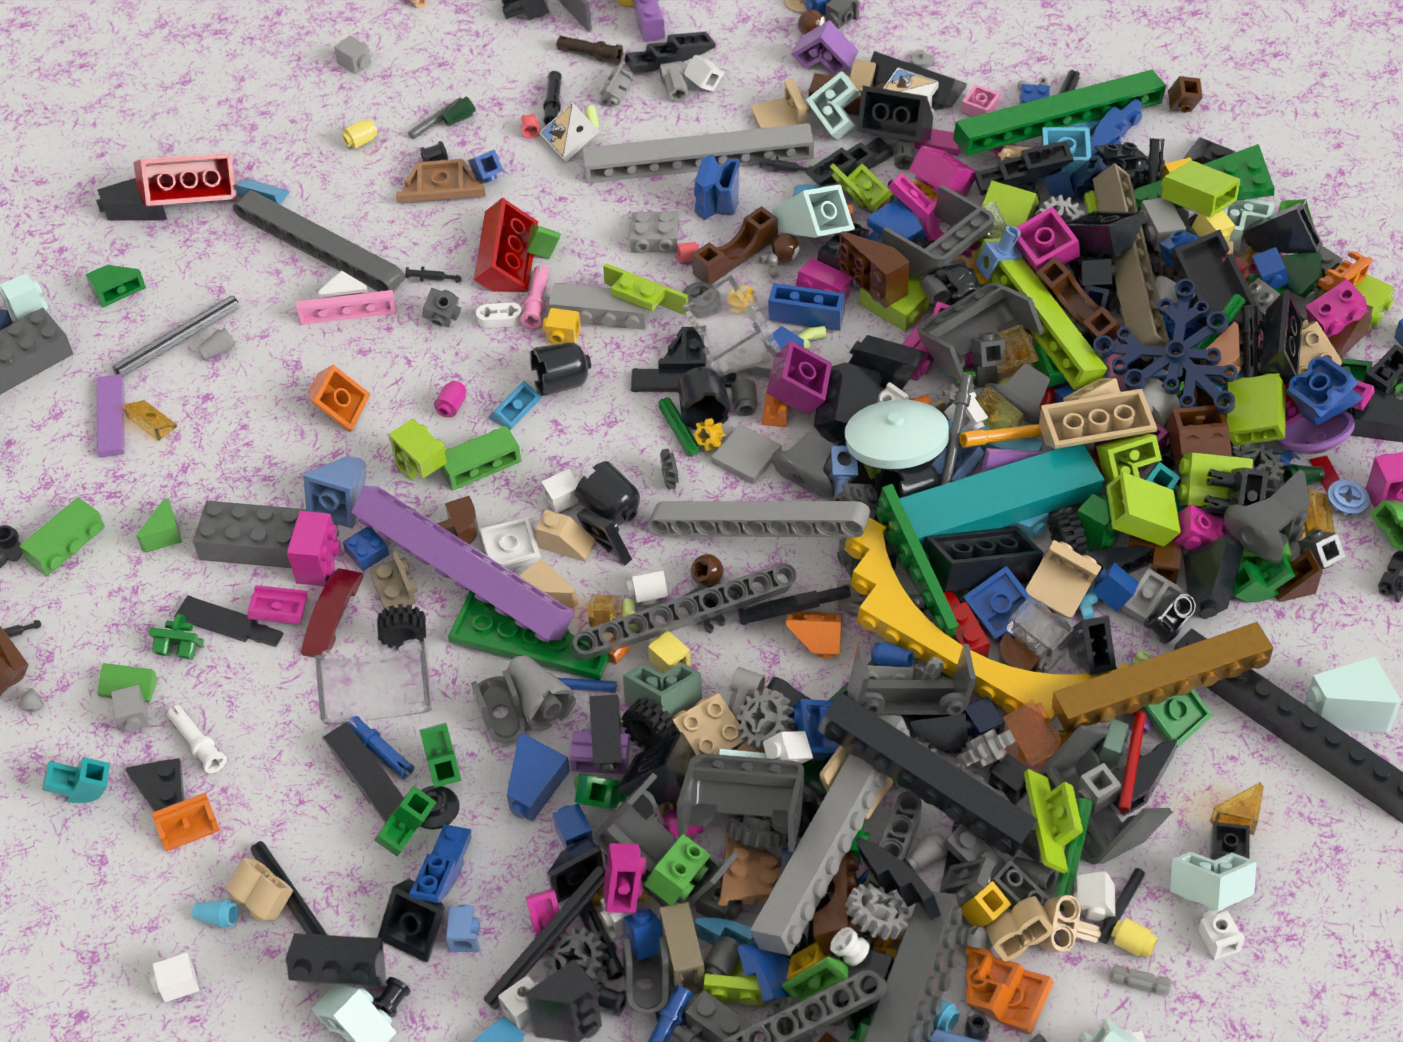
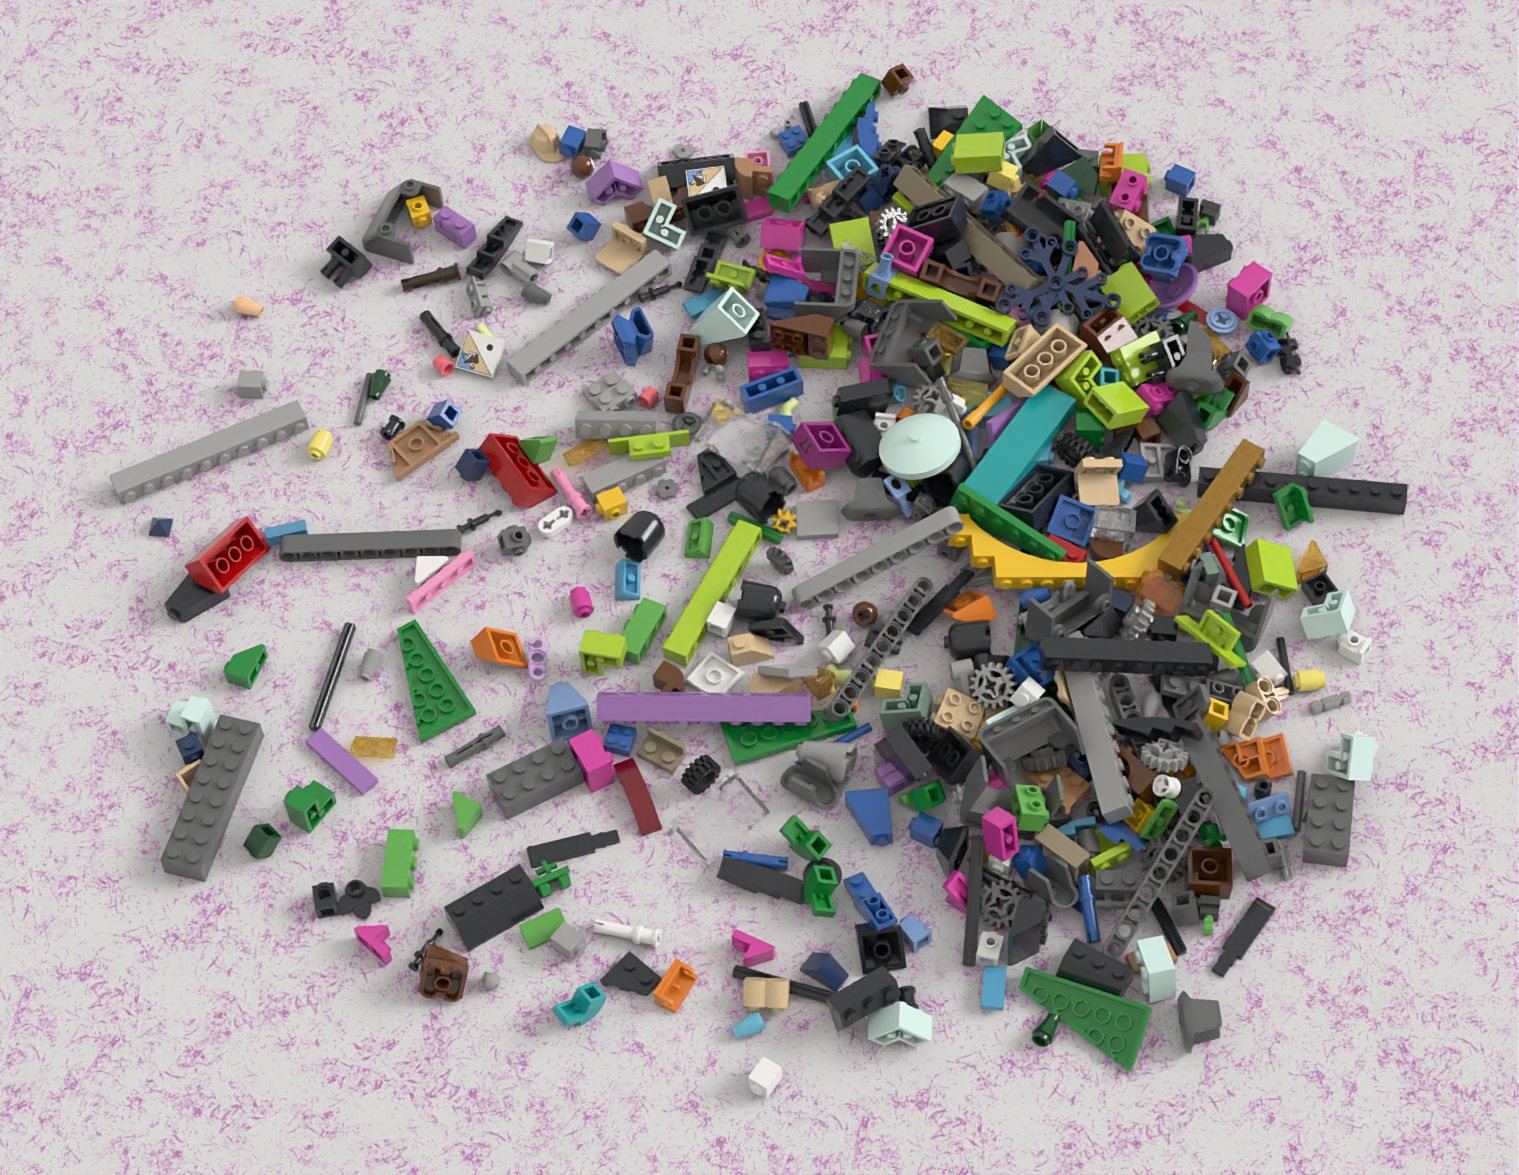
camera: 35 degrees left, 5 degrees up
(38, 437) = (309, 805): none -> green brick
(99, 631) = (493, 907): none -> black slope
(168, 130) = (160, 527): none -> dark blue slope
(232, 472) = (478, 744): none -> dark grey pin
(249, 396) = (433, 689): none -> green wing
(265, 90) = (209, 452): none -> light grey brick
(277, 604) = (598, 813): dark pink plate -> none
(290, 839) = (757, 950): none -> dark pink slope
(341, 909) = (825, 970): none -> dark blue slope
(353, 432) = (534, 666): none -> lavender piece
(469, 220) = (472, 464): none -> dark blue brick
(573, 576) = (787, 670): none -> light grey tile
(581, 267) = (584, 451): none -> clear yellow slope
(617, 406) = (699, 538): none -> bright green slope
(618, 445) = (713, 587): none -> lime brick
(629, 343) = (667, 488): none -> flat silver plant
(630, 256) = (615, 424): none -> light grey brick
(668, 108) = (534, 293): none -> dark grey cone
(669, 555) = (829, 619): none -> black piece
(764, 72) = (583, 226): none -> blue brick
(789, 659) = (968, 639): none -> black cylinder
(937, 382) = (899, 394): none -> medium azure plate
(958, 104) = (753, 178): none -> medium nougat brick
(1187, 785) = (1271, 568): none -> lime brick
(1267, 732) = (1293, 506): none -> green bracket
(1372, 547) = (1263, 346): none -> blue brick

